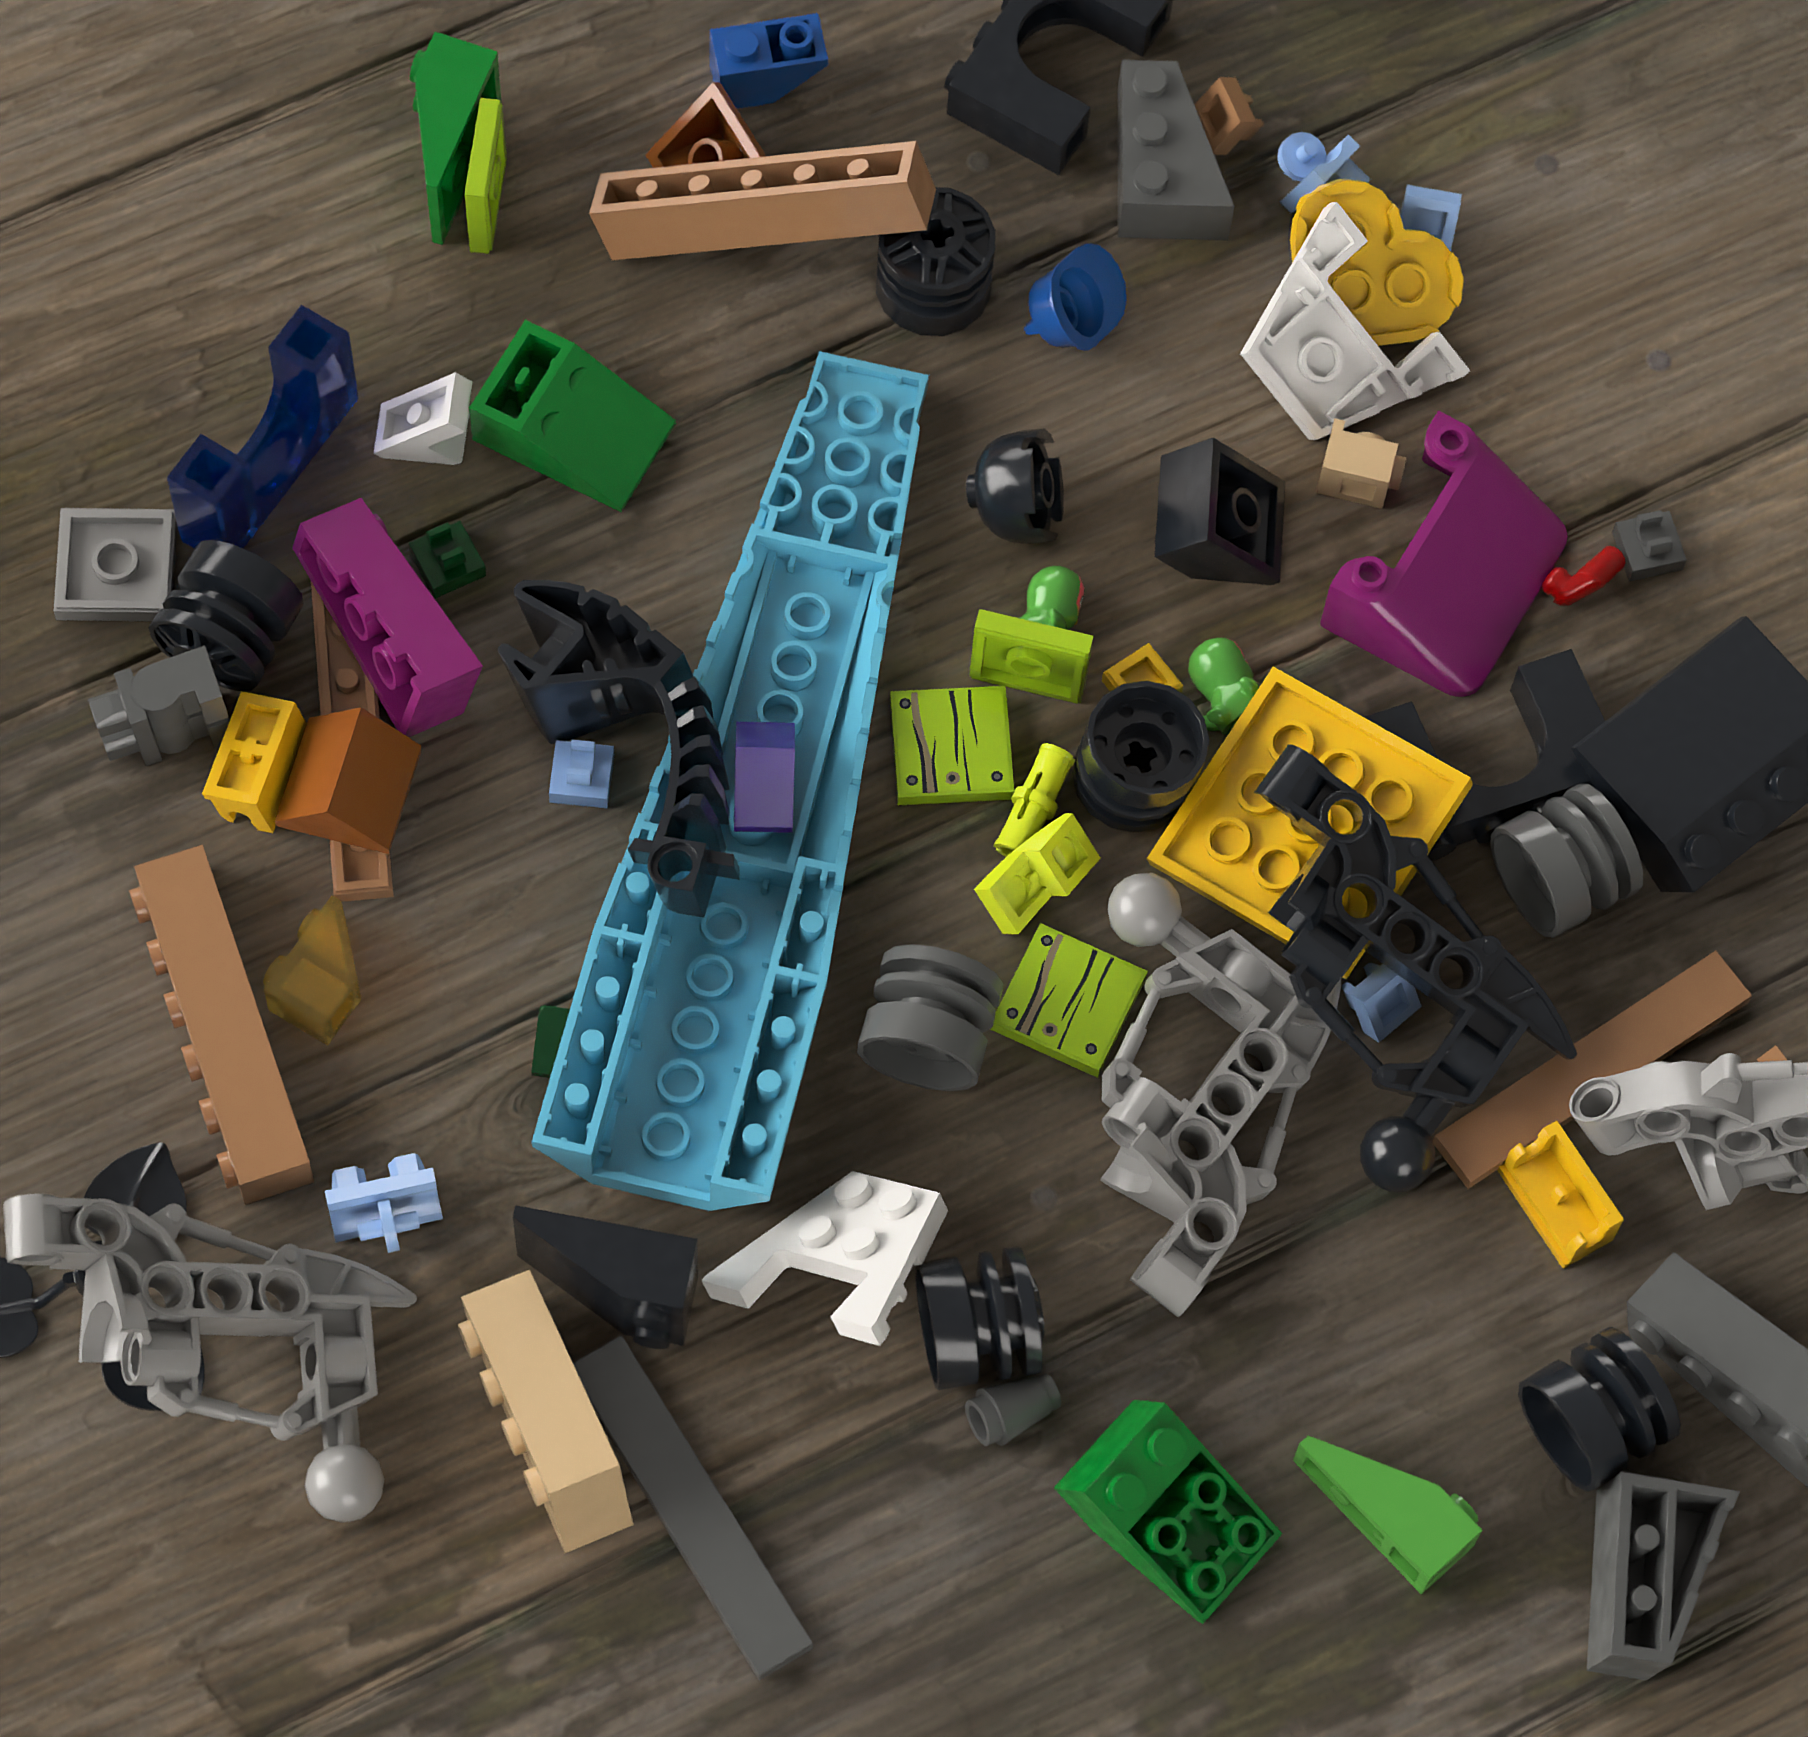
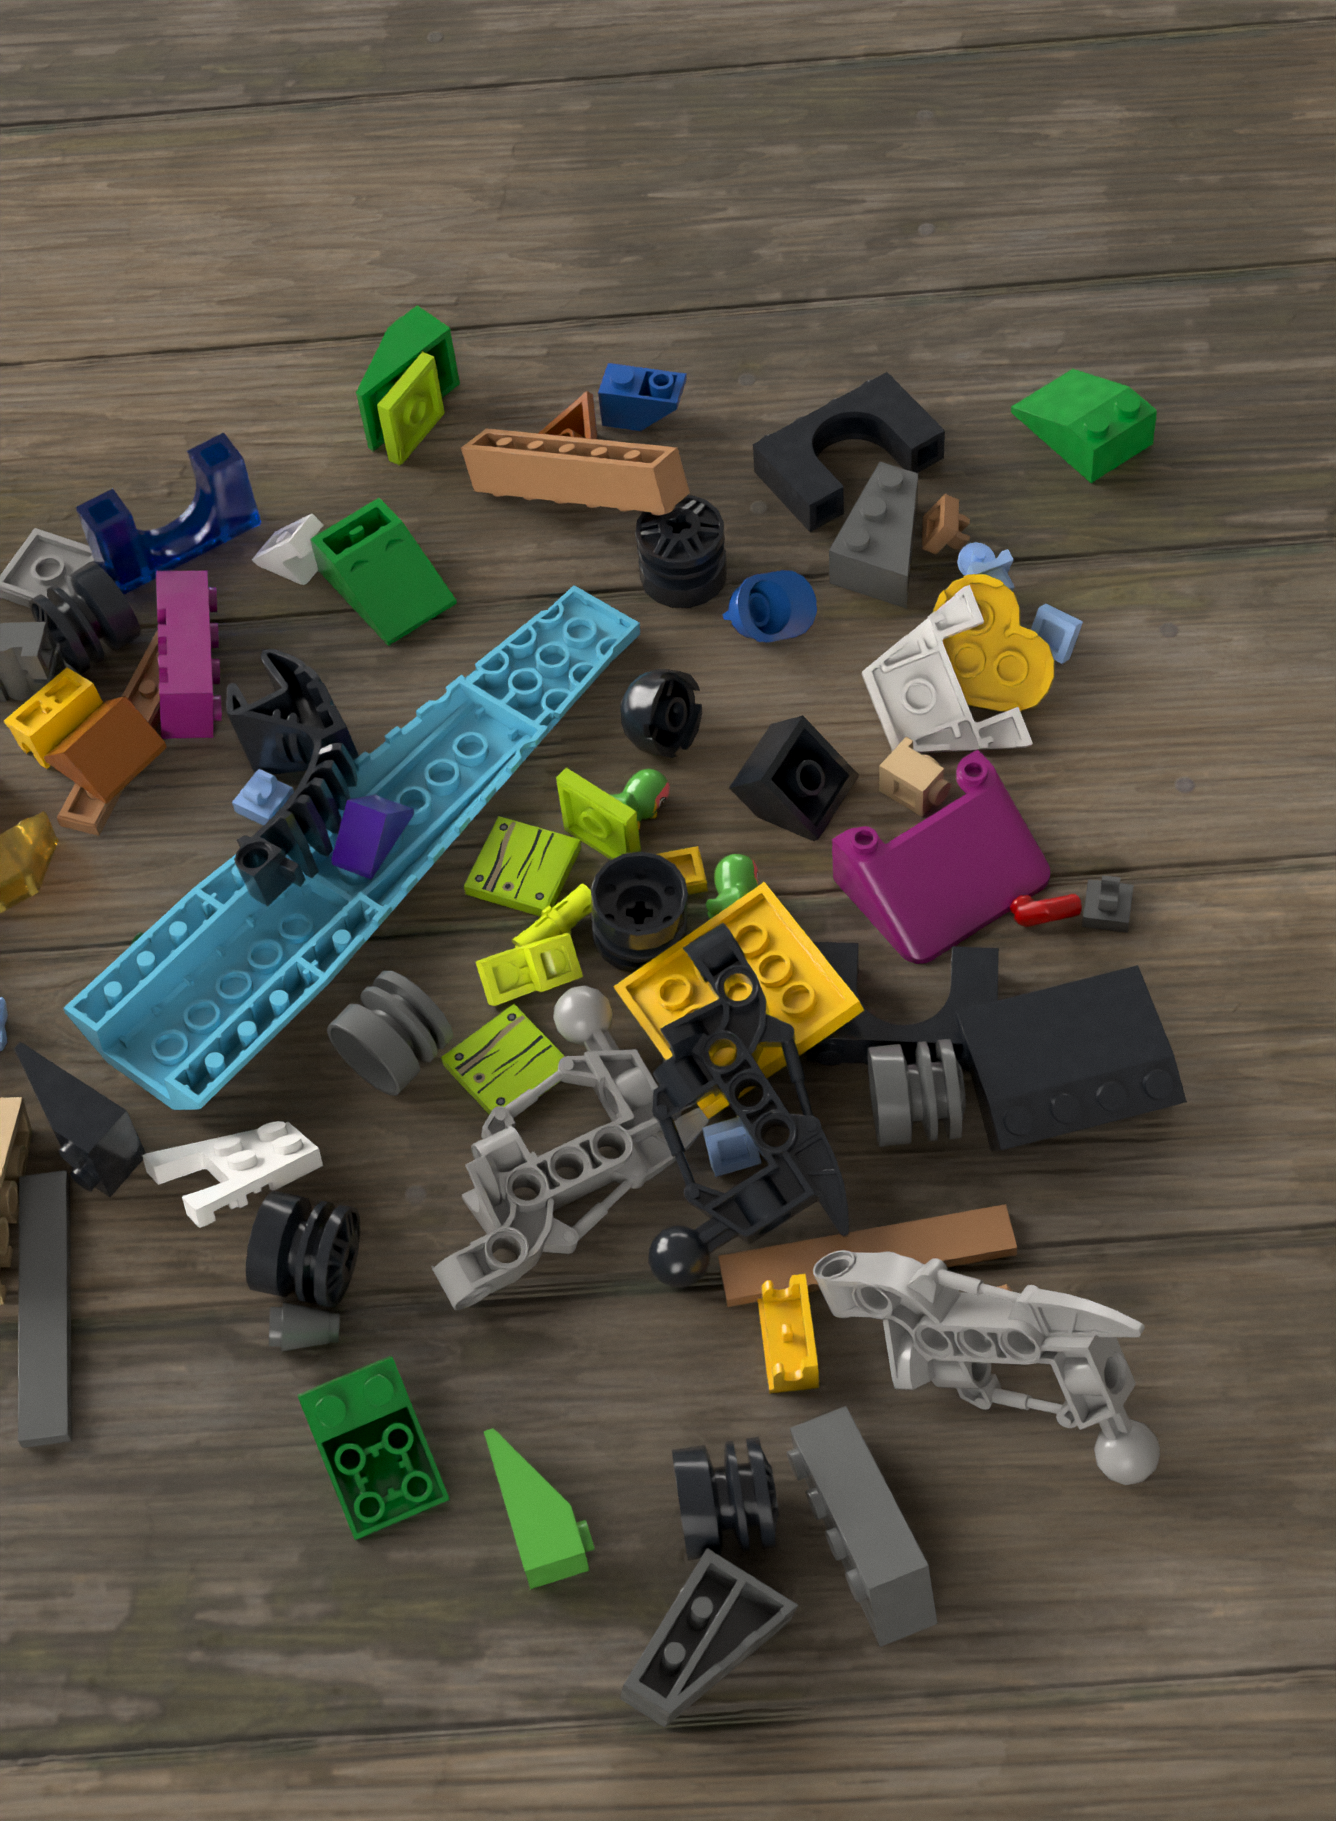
camera: 35 degrees right, 10 degrees down
(447, 558) = (256, 634): dark green tile -> none

